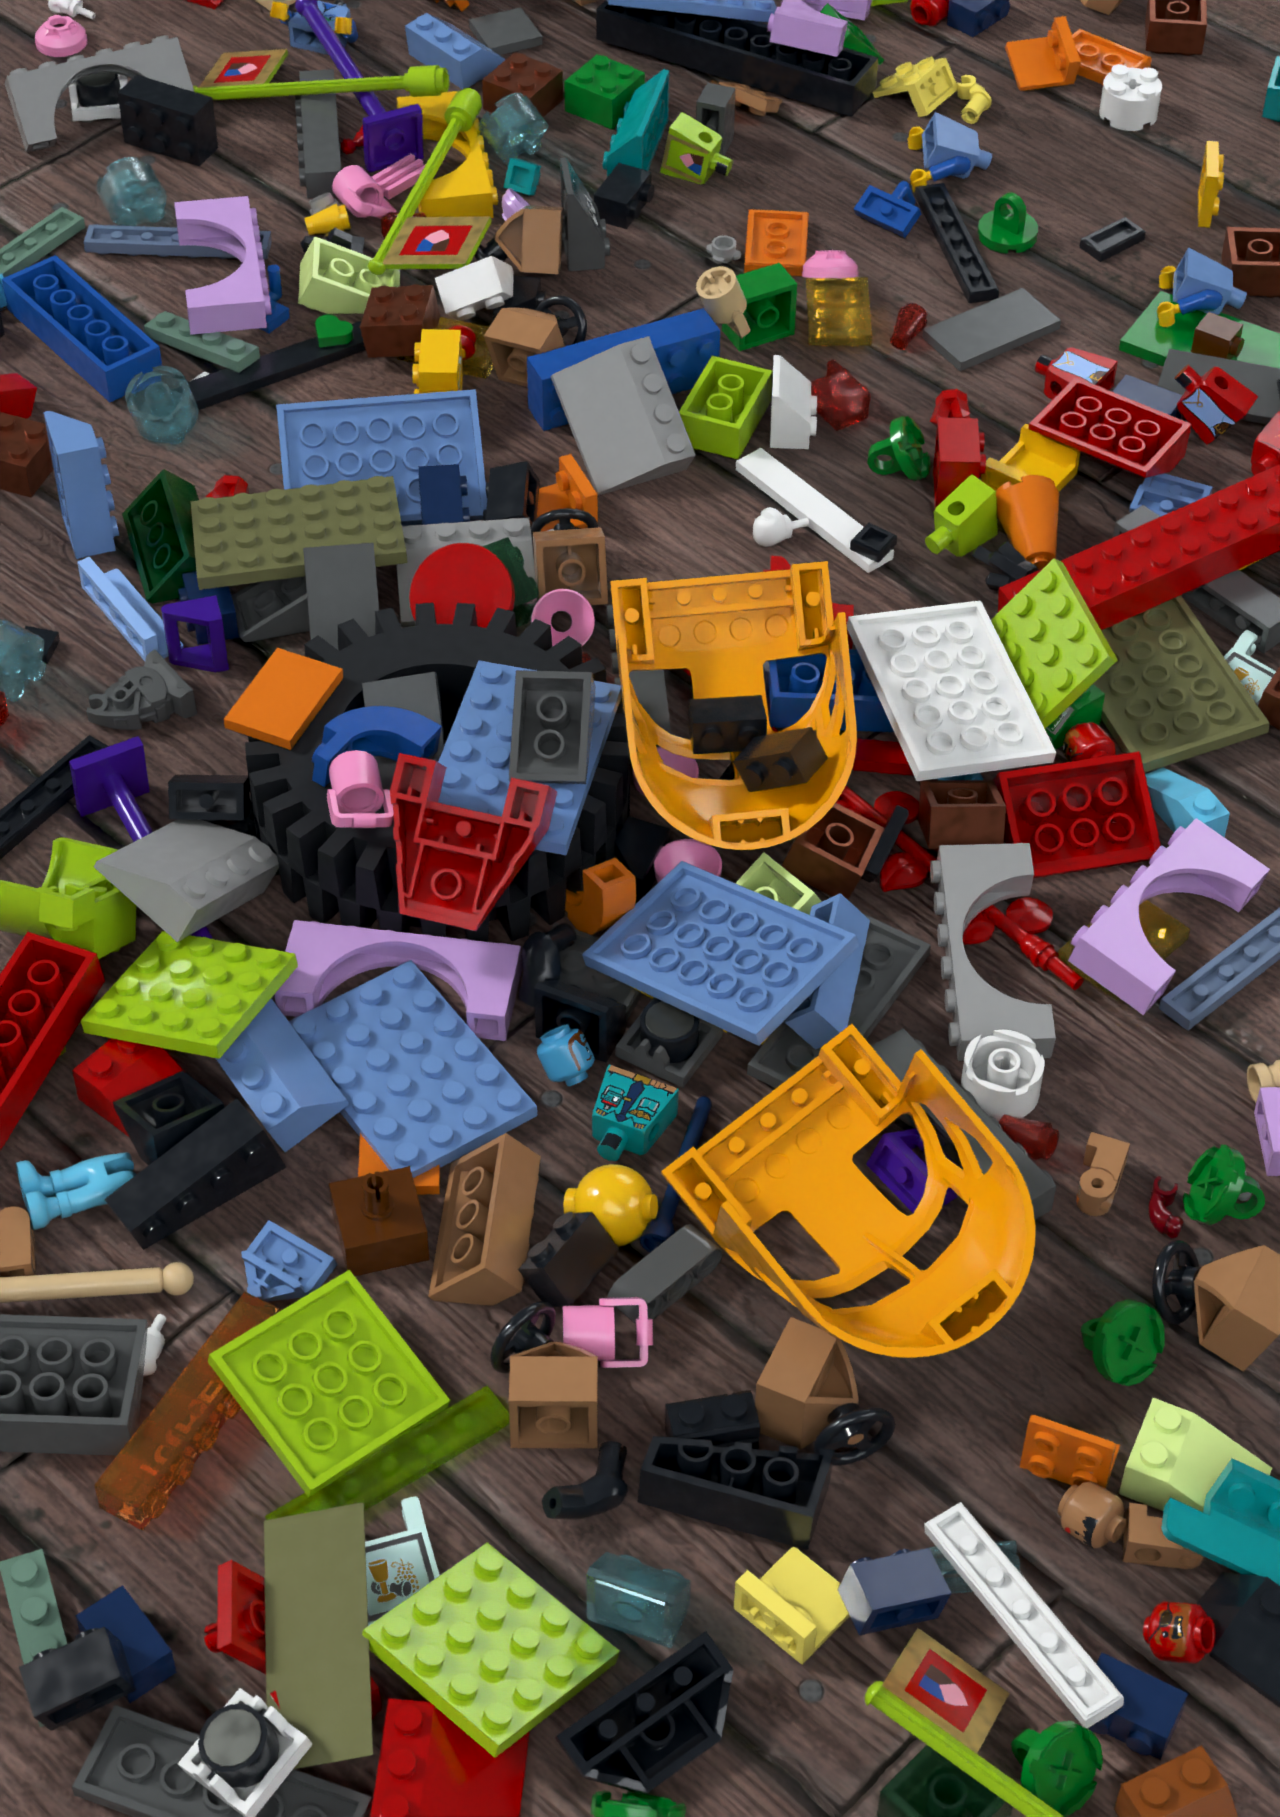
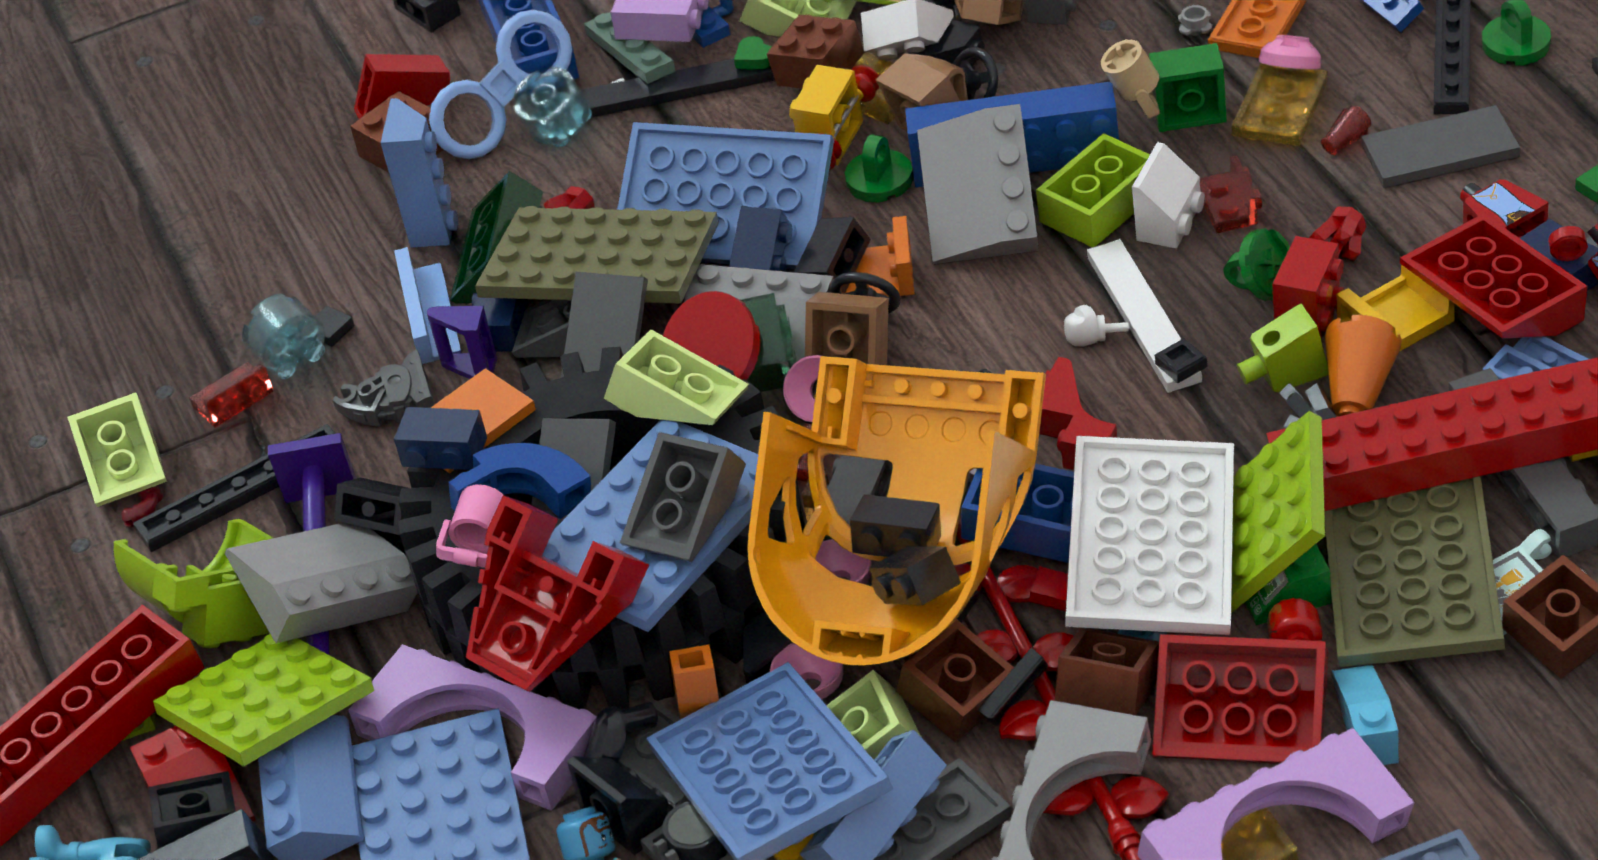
camera: 30 degrees right, 5 degrees down
(109, 384) = (497, 86): none -> light blue bar
(280, 717) = (439, 437): none -> dark blue brick
(477, 630) = (671, 383): none -> yellowish green slope
(507, 422) = (878, 171): none -> green tile
(1159, 391) = (1567, 243): none -> red tile

